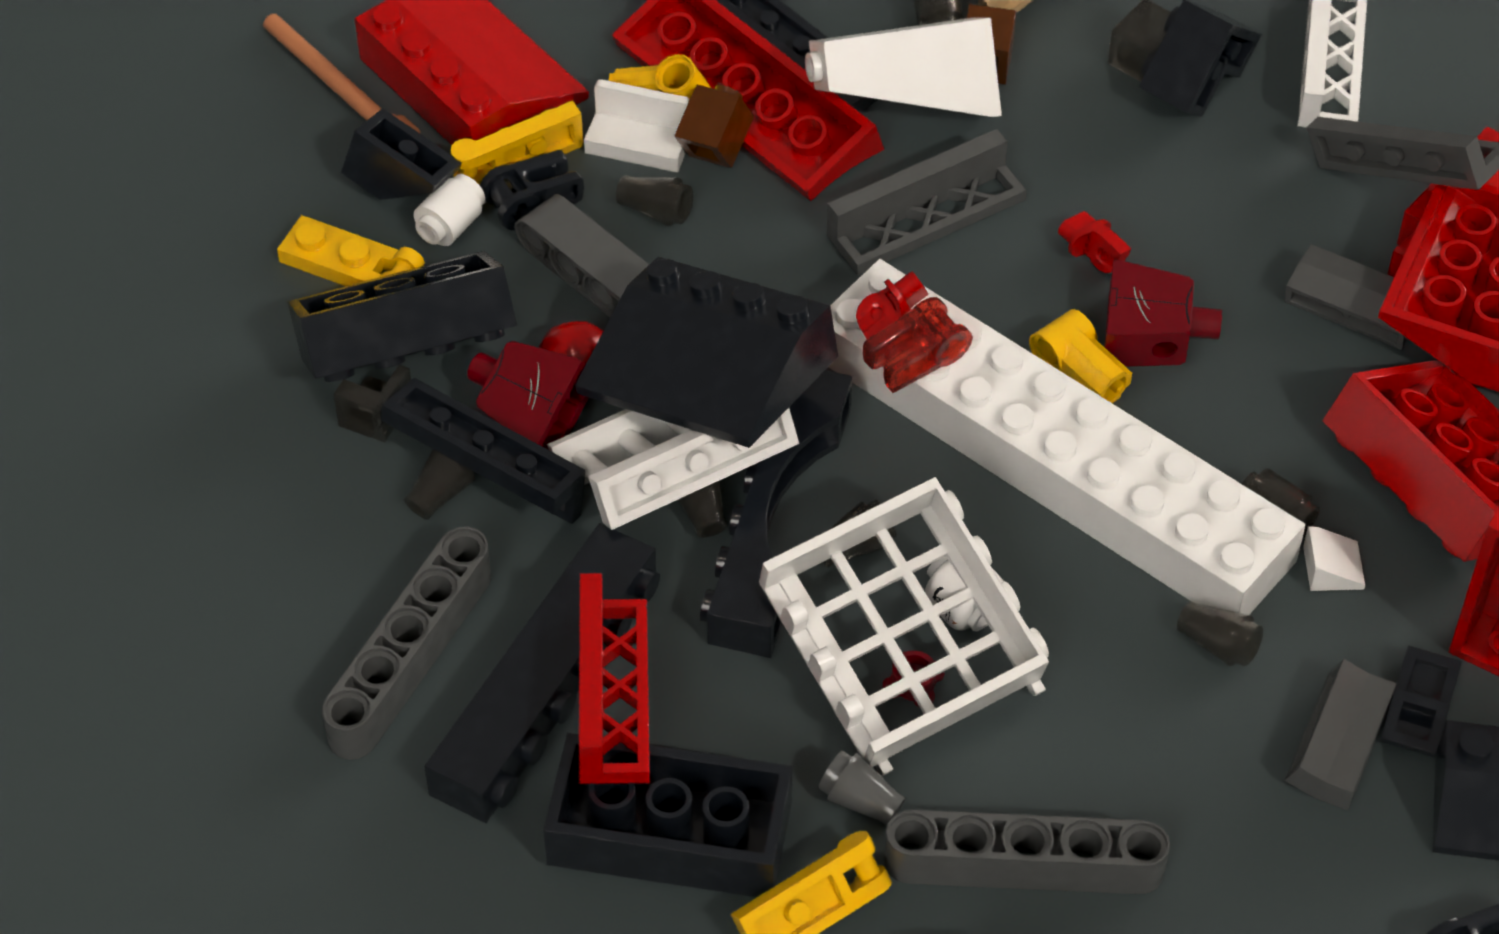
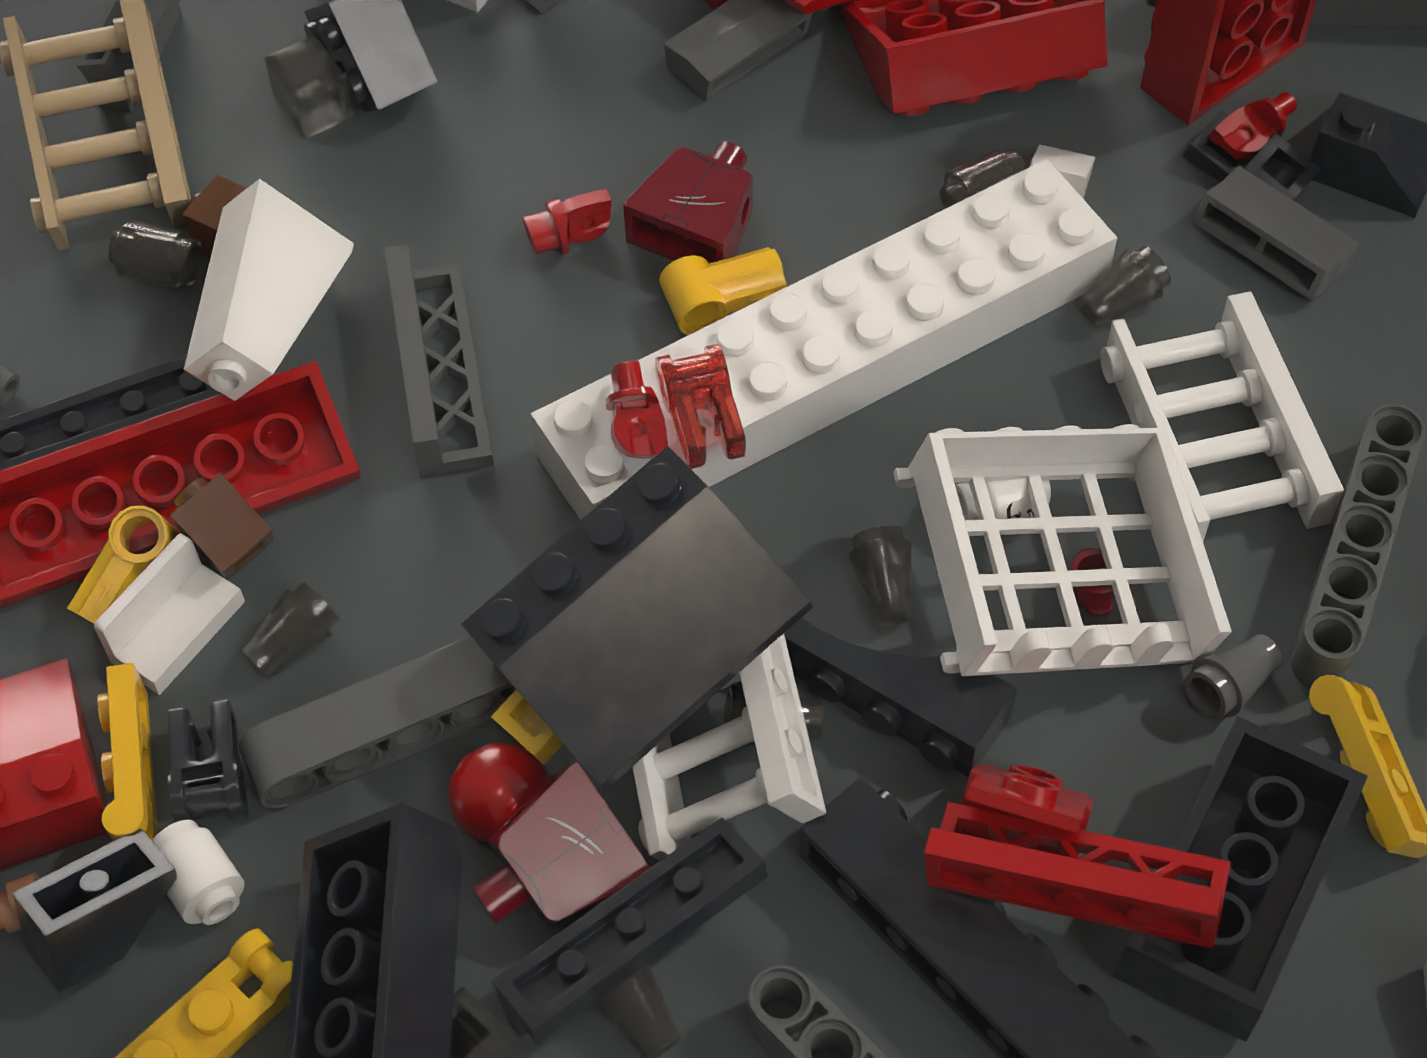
camera: 70 degrees left, 5 degrees up
(678, 659) = (1026, 794): none -> red piece
(1113, 776) = (1261, 383): none -> white fence
(1453, 684) = (1253, 125): none -> red piece

